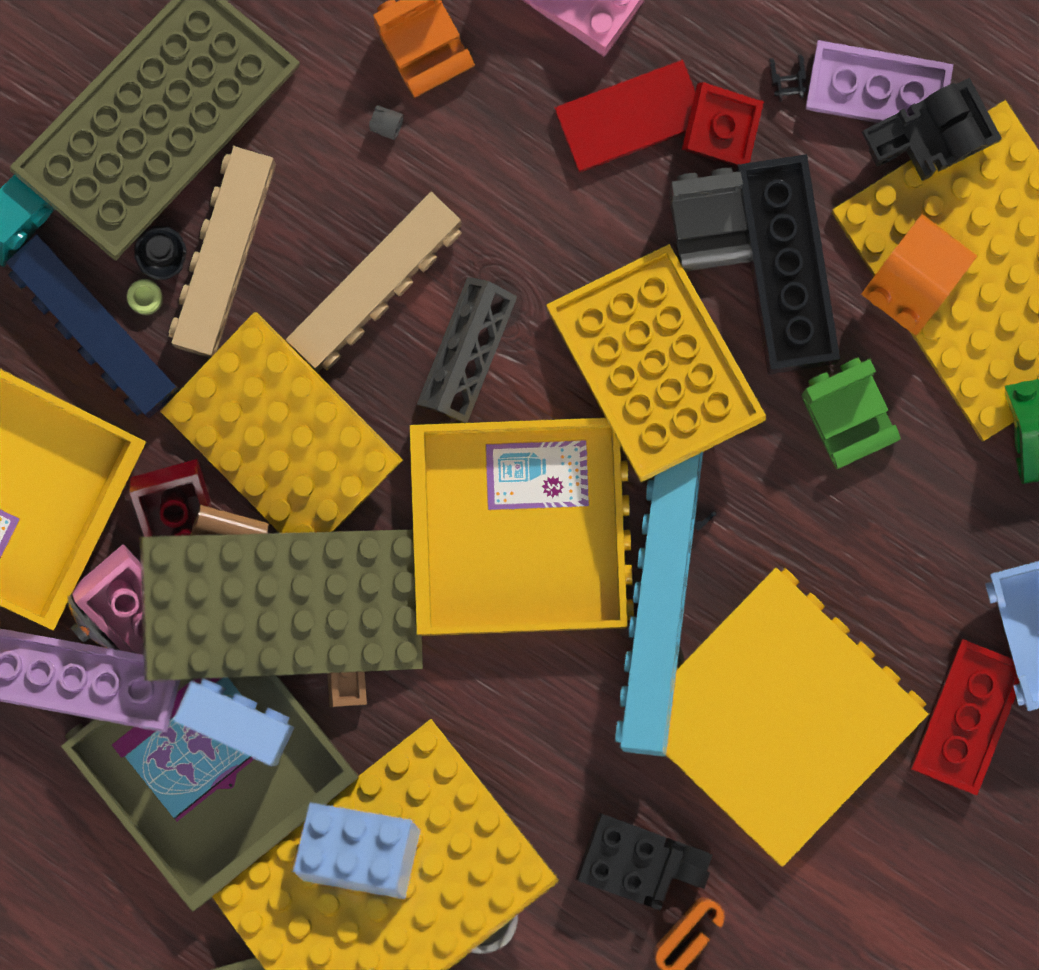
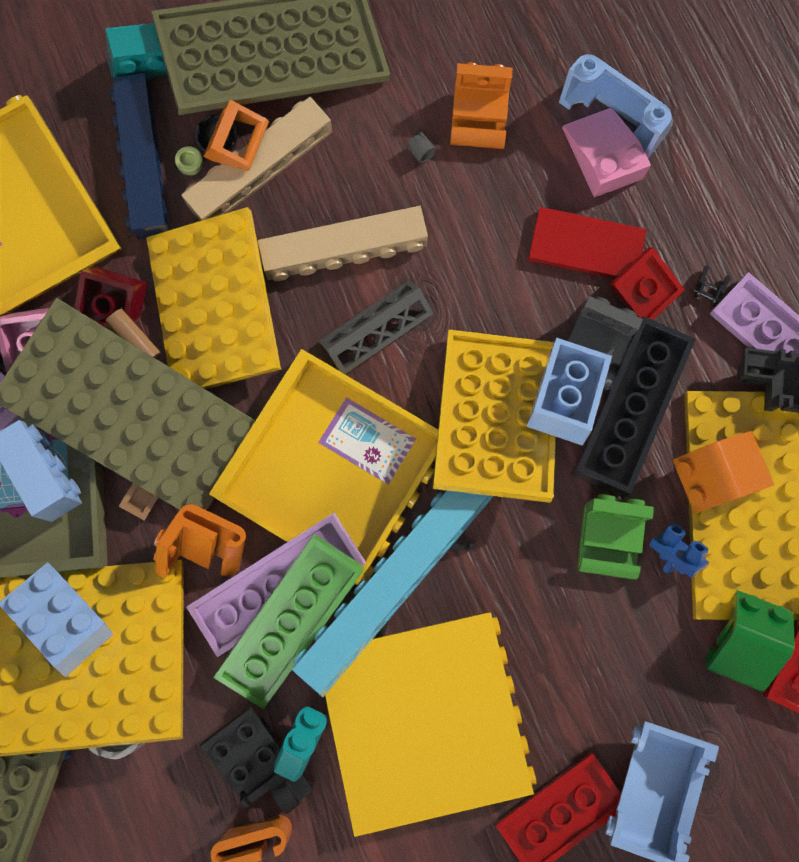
camera: 30 degrees right, 5 degrees down
(171, 248) = (231, 112): none -> orange tile
(438, 683) = (198, 537): none -> orange piece
(546, 679) = (234, 604): none -> lavender plate
(584, 705) = (289, 621): none -> bright green plate
(673, 814) = (300, 744): none -> teal brick
(713, 295) = (569, 391): none -> light blue brick
(925, 387) = (677, 554): none -> blue hips

